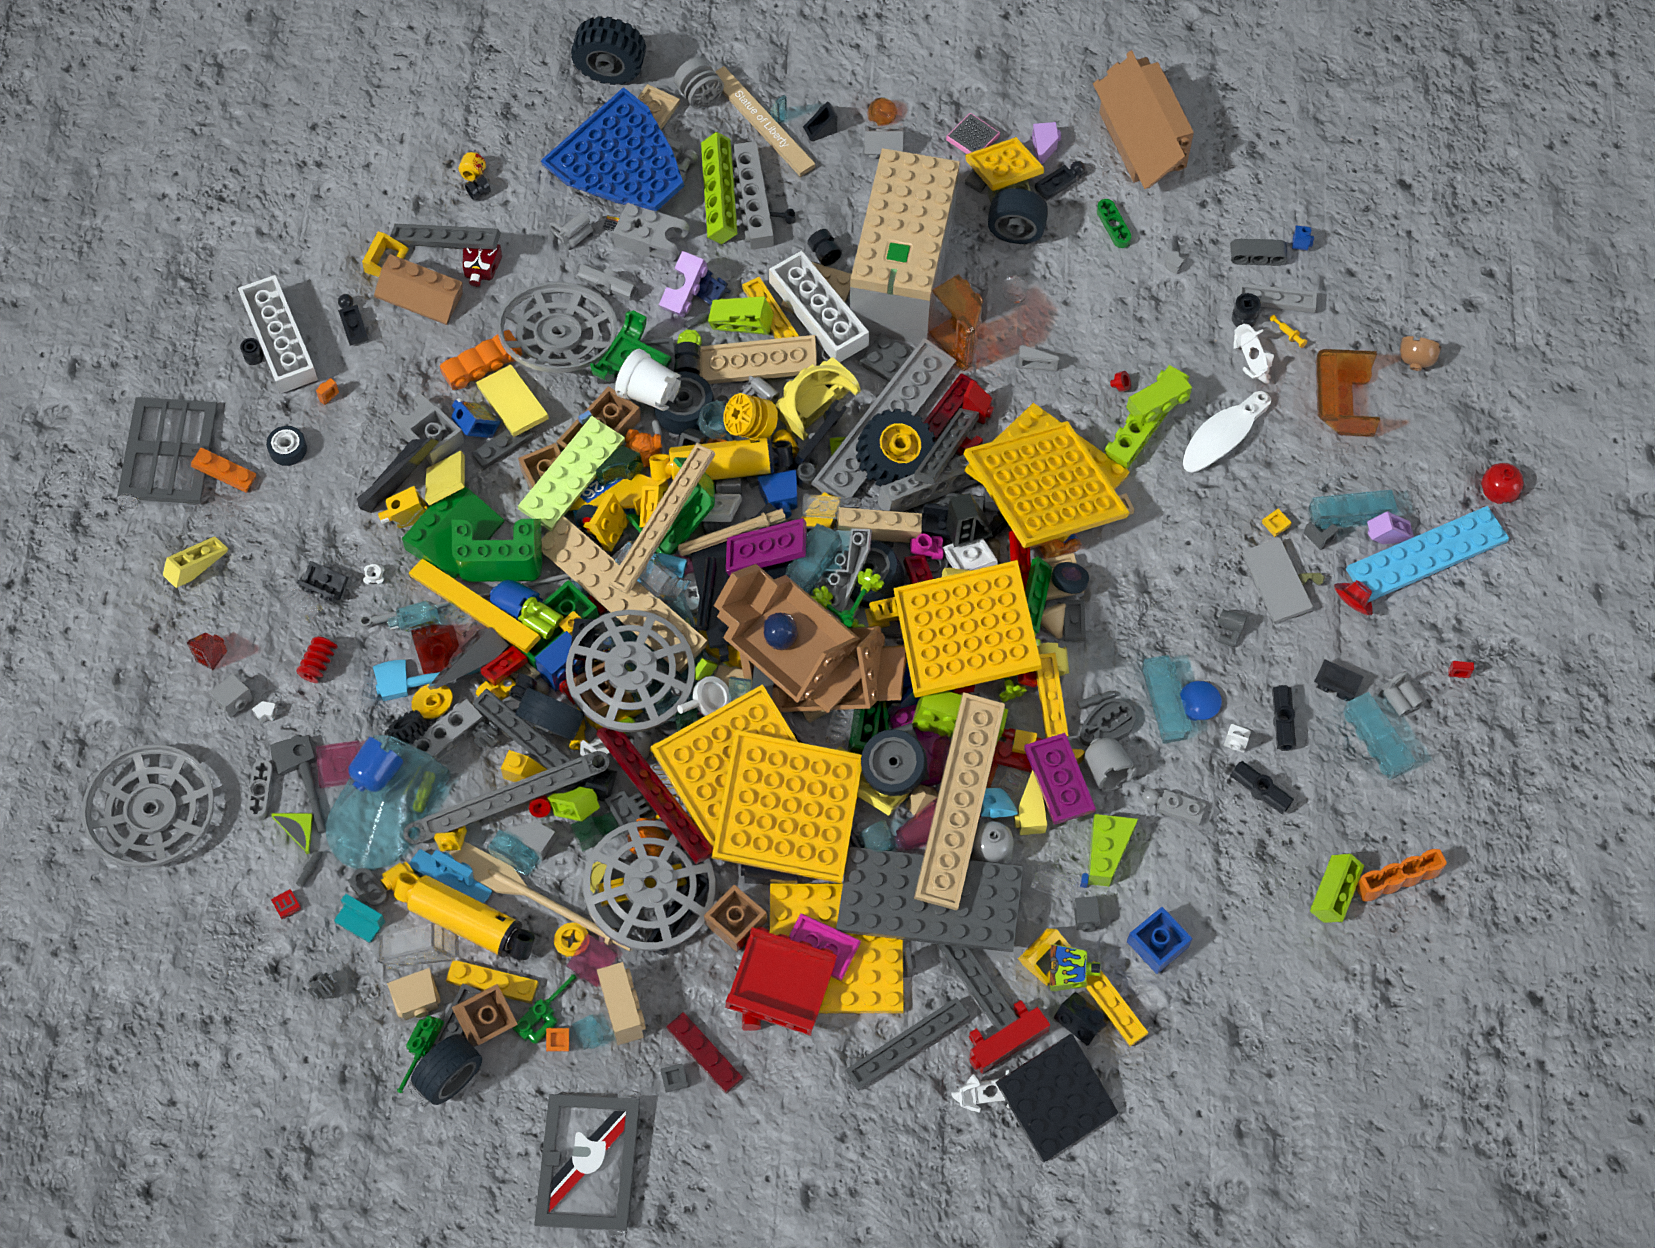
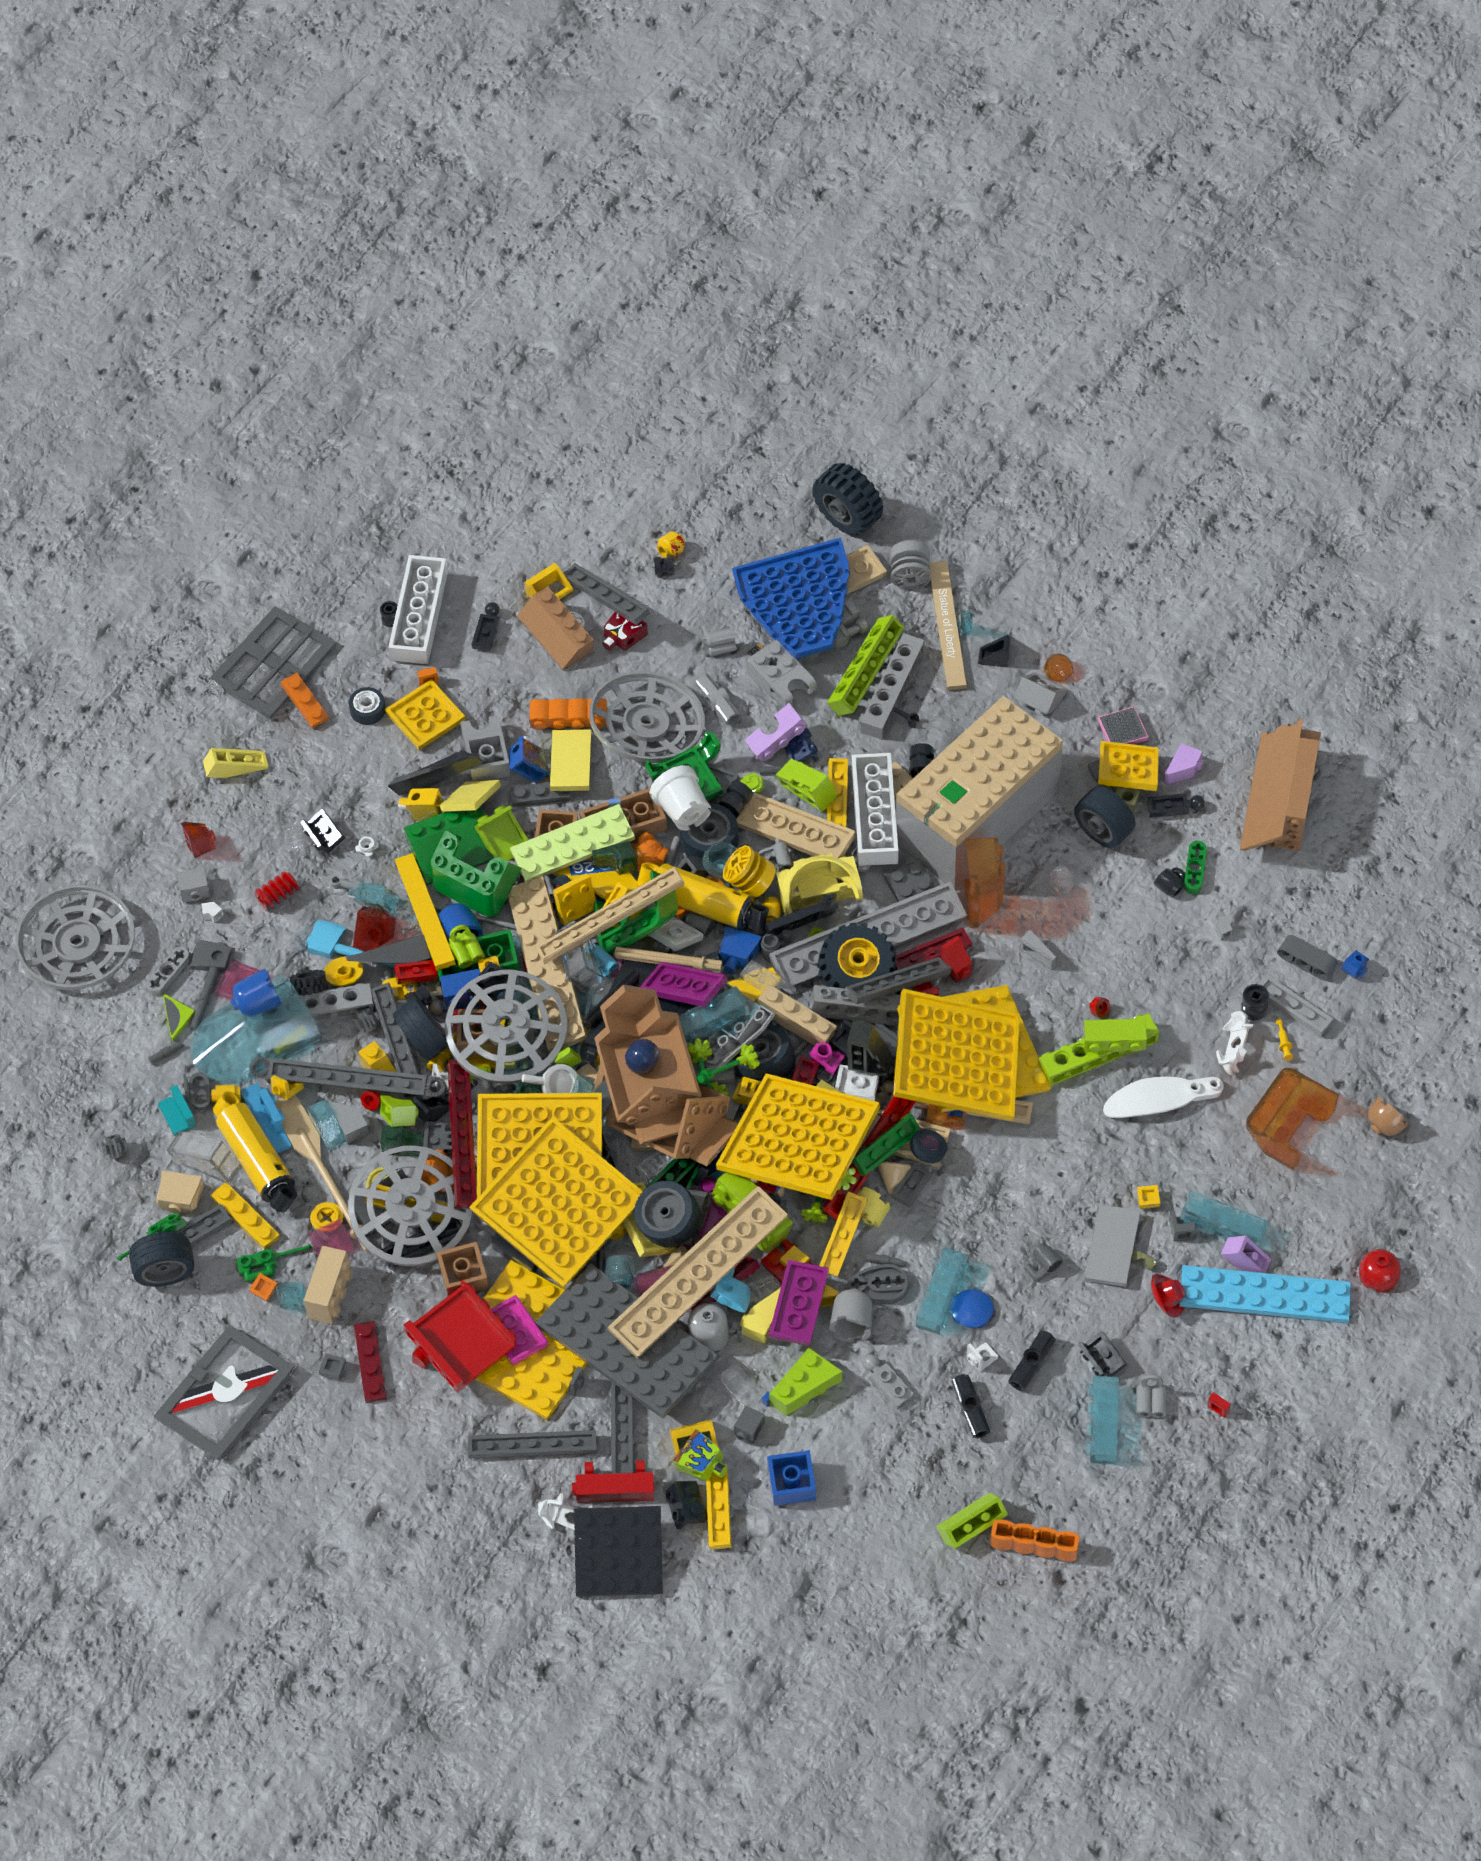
camera: 35 degrees right, 5 degrees down
(286, 904) = (130, 1070): red tile -> none
(347, 426) = (425, 714): none -> yellow plate
(484, 1015) = (218, 1235): medium nougat brick -> none
(497, 499) = (500, 832): none -> lime panel
(1103, 245) = (1169, 882): none -> black piece

